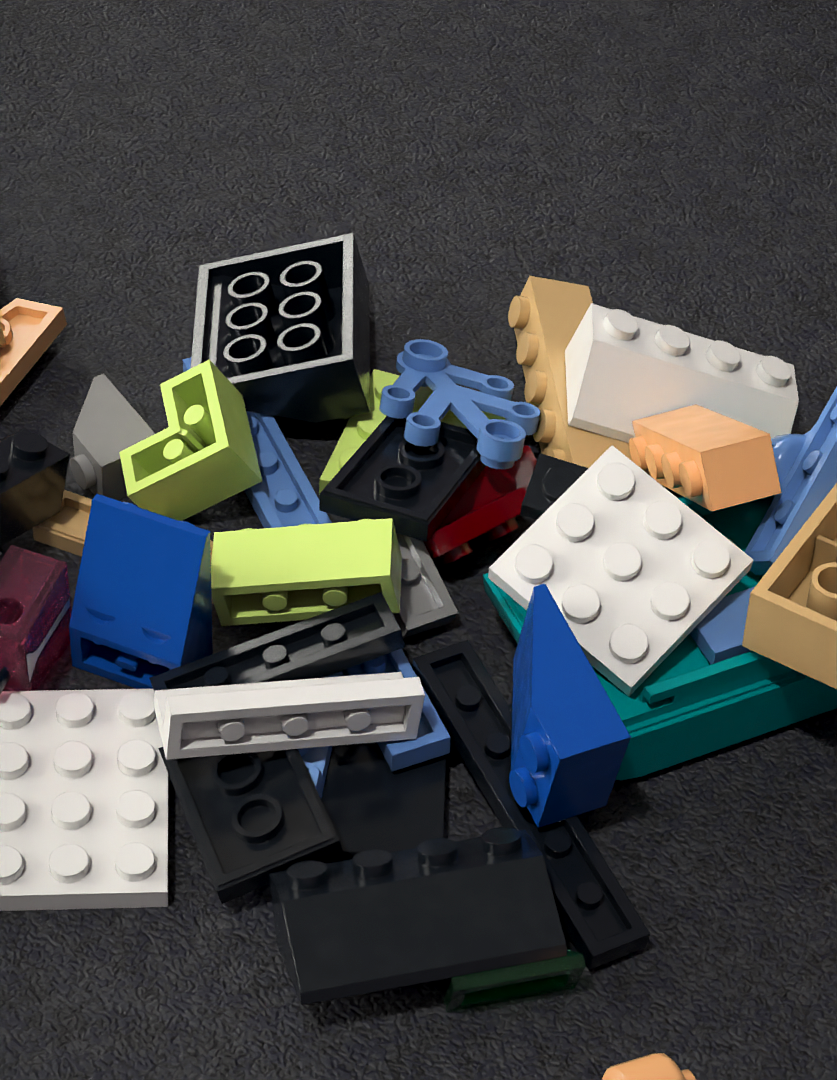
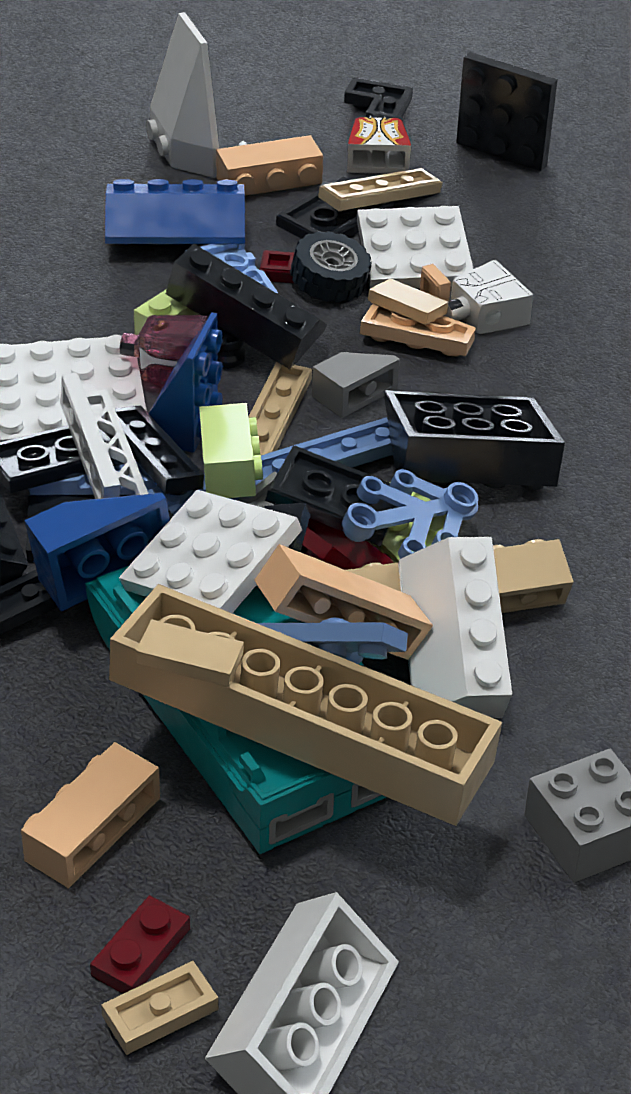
camera: 85 degrees right, 5 degrees down
(200, 455) = (333, 400): yellowish green brick -> none

